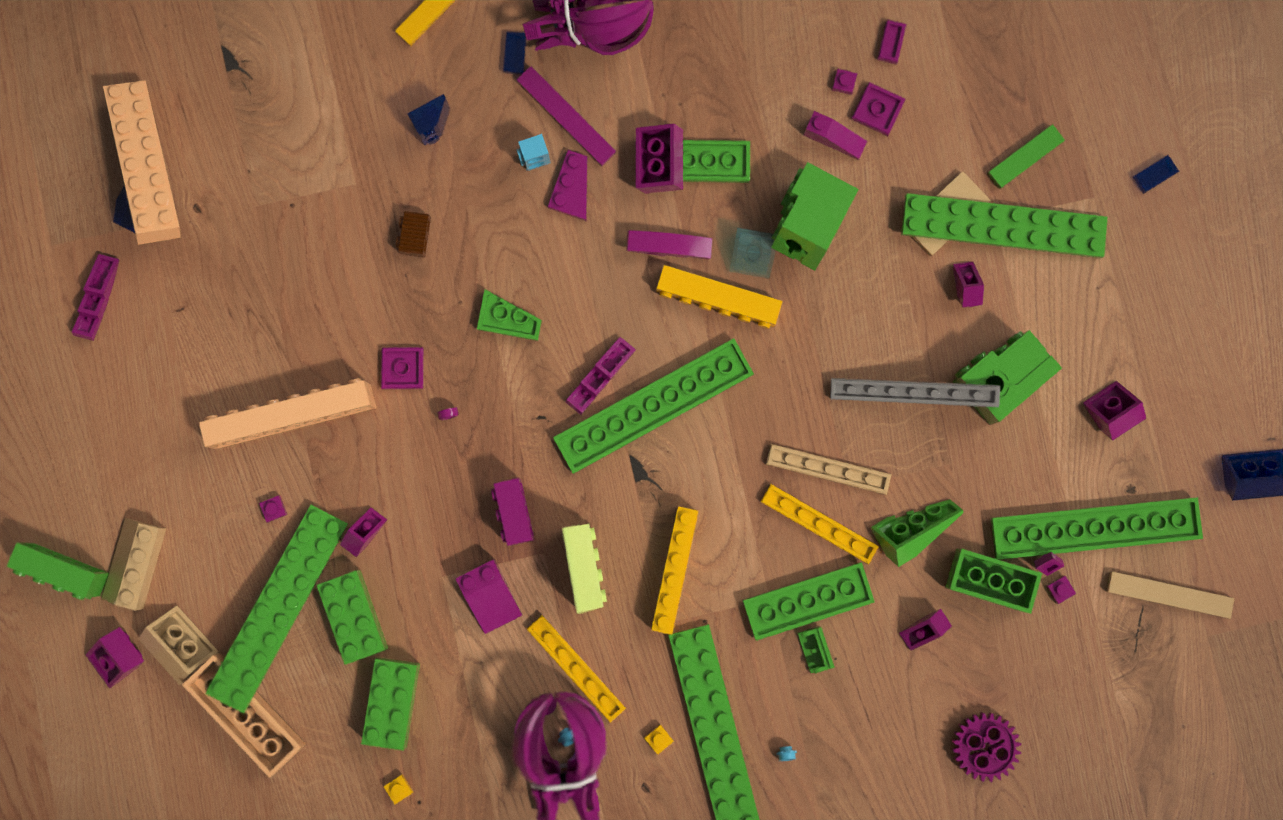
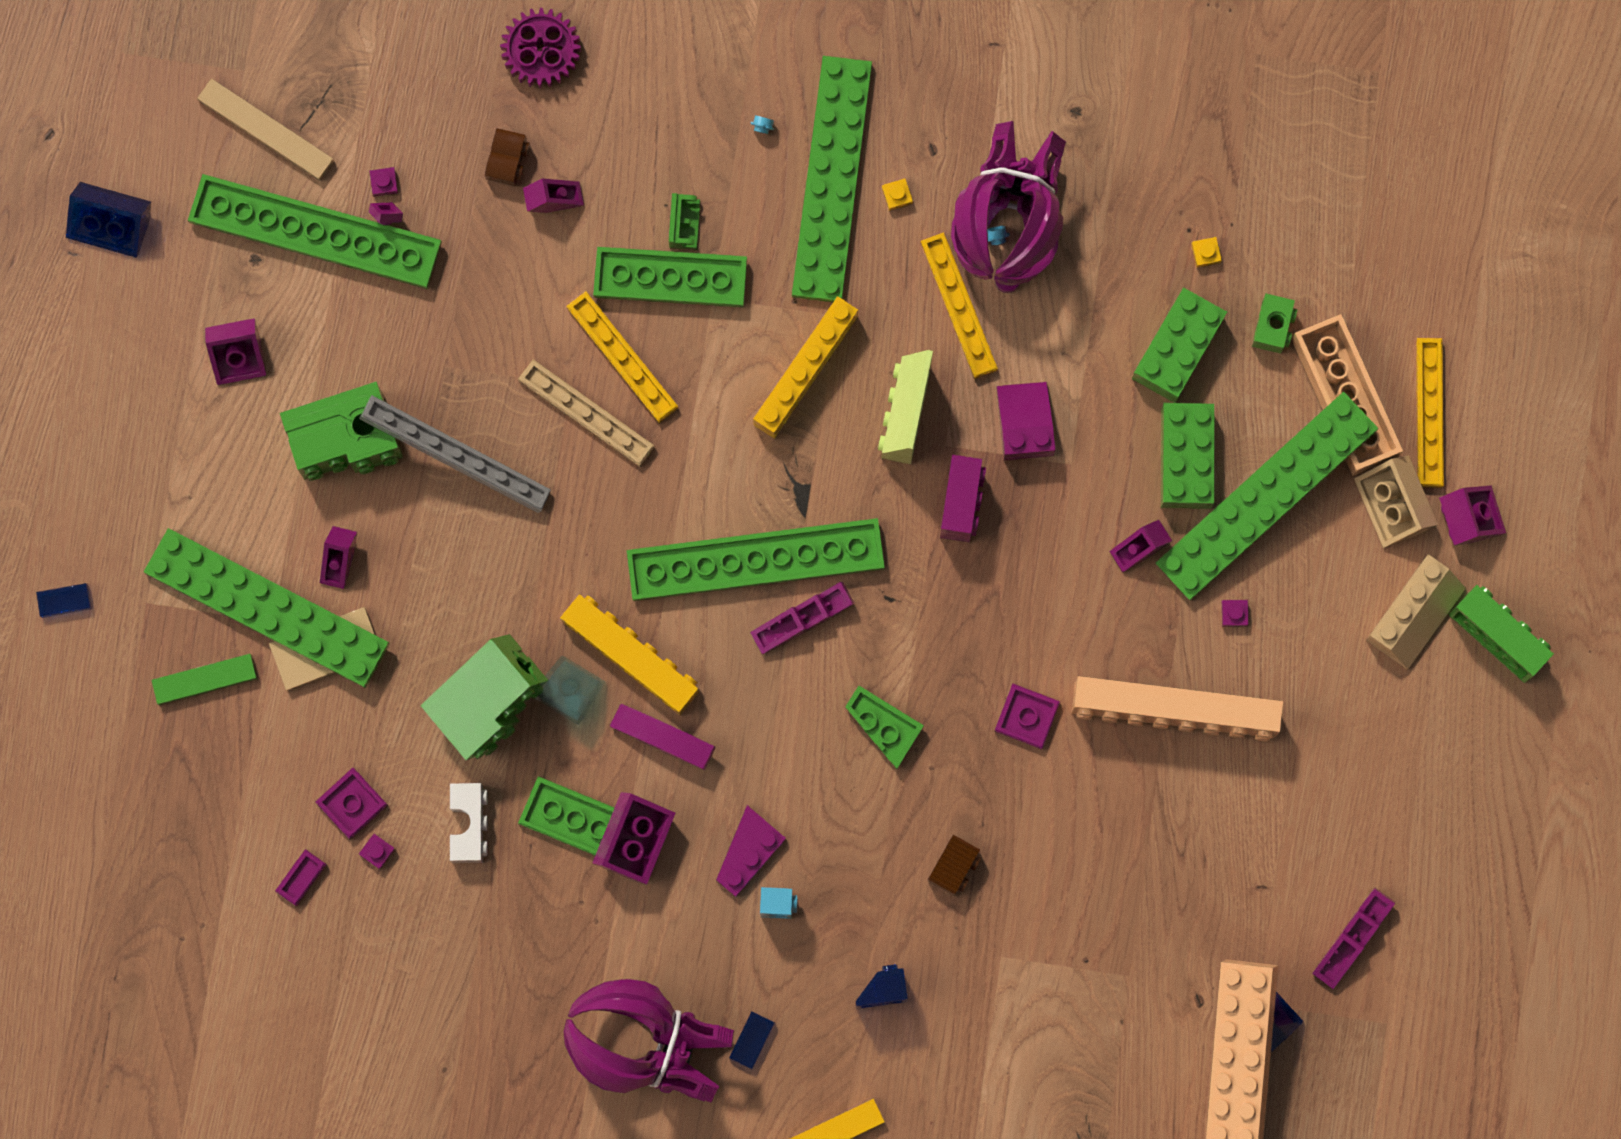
camera: 150 degrees left, 5 degrees down
(177, 729) = (1429, 412): none -> yellow tile
(328, 739) = (1274, 308): none -> bright green brick
(448, 413) = (994, 641): magenta tile -> none
(566, 116) = (721, 939): magenta tile -> none
(791, 142) = (470, 845): none -> white arch
(834, 135) = (416, 789): magenta slope -> none
(910, 534) = (526, 306): bright green wedge -> none
(975, 646) = (506, 157): none -> reddish brown brick
(993, 580) = (456, 218): bright green brick -> none

